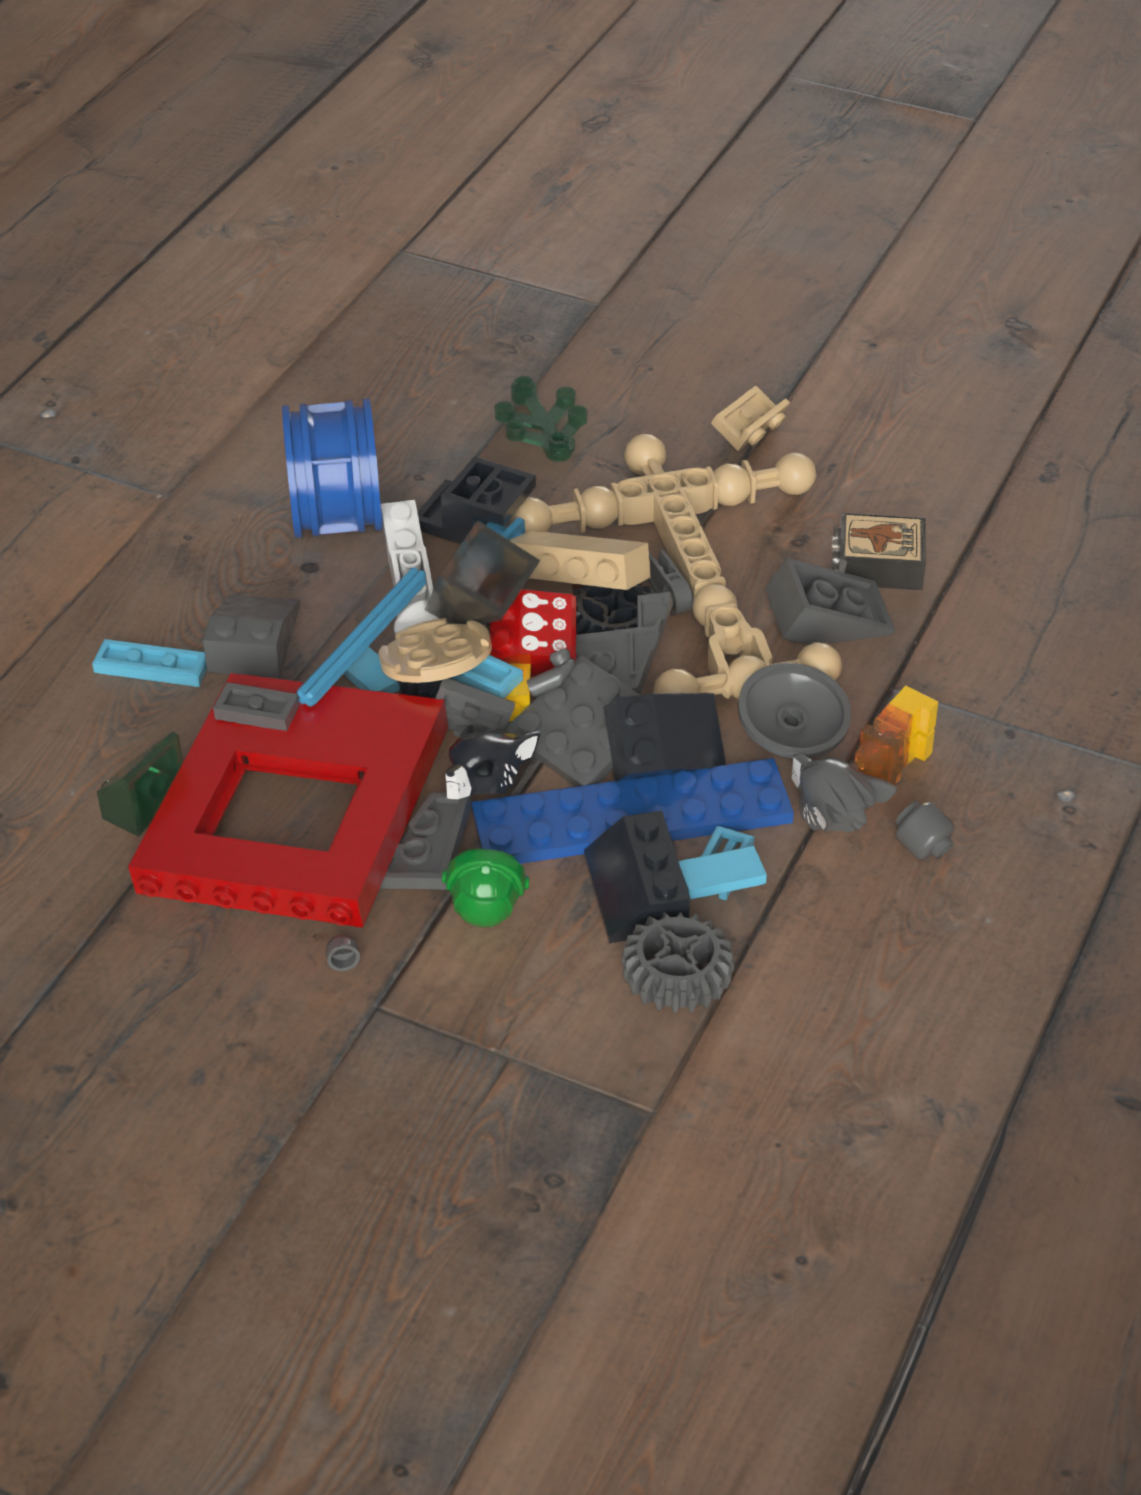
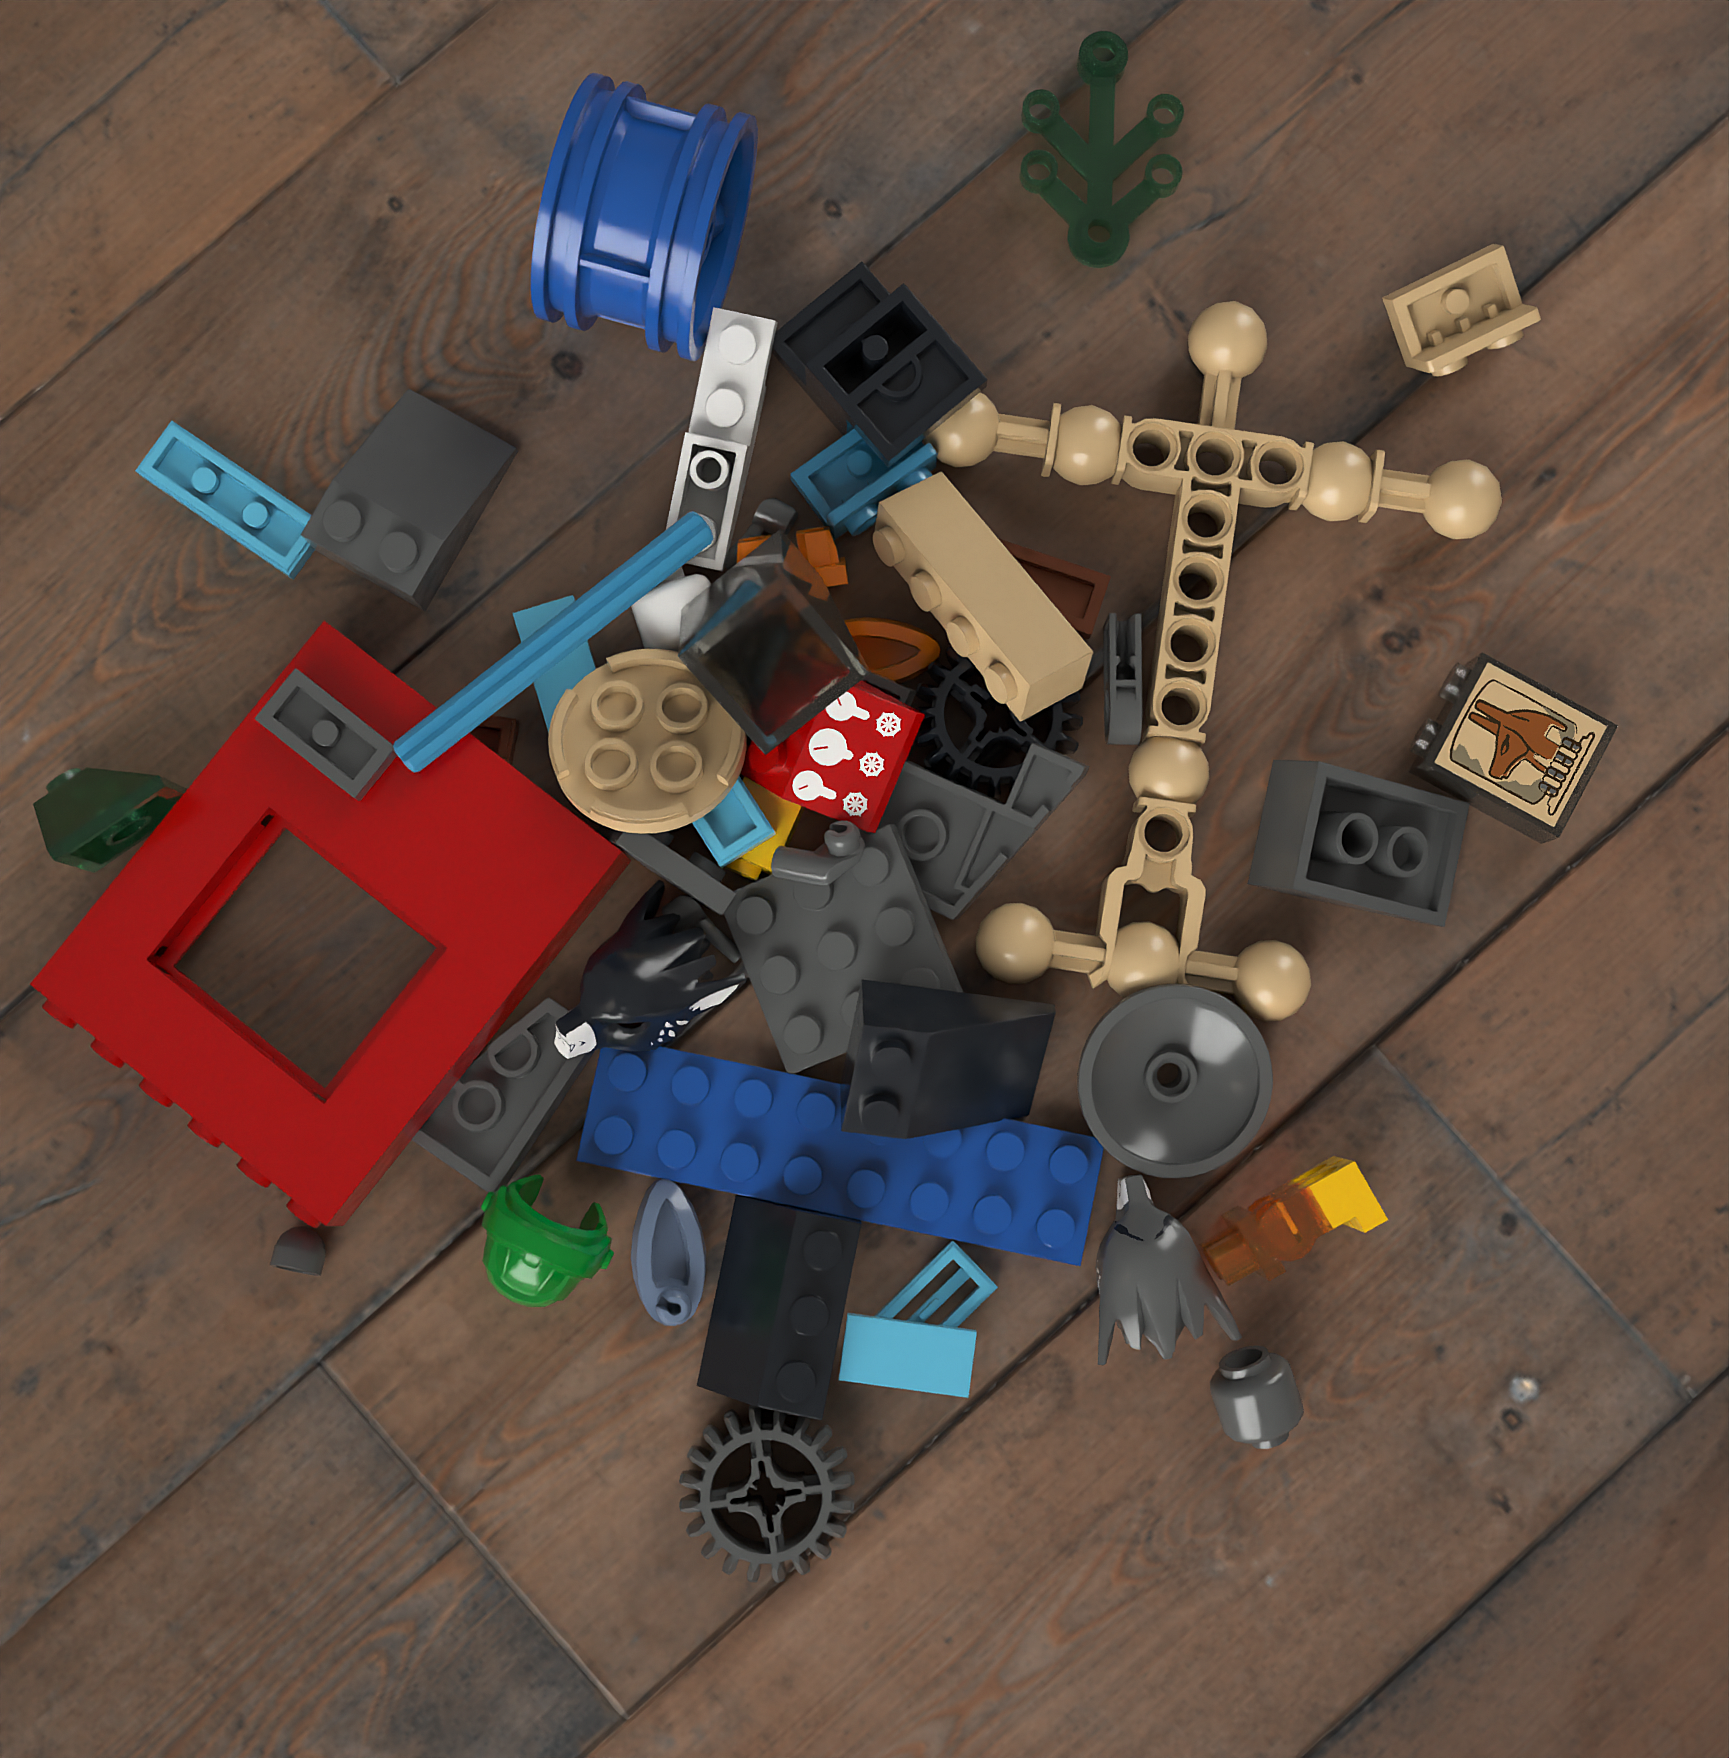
camera: 20 degrees right, 40 degrees up
(560, 881) = (668, 1254): none -> sand blue arm

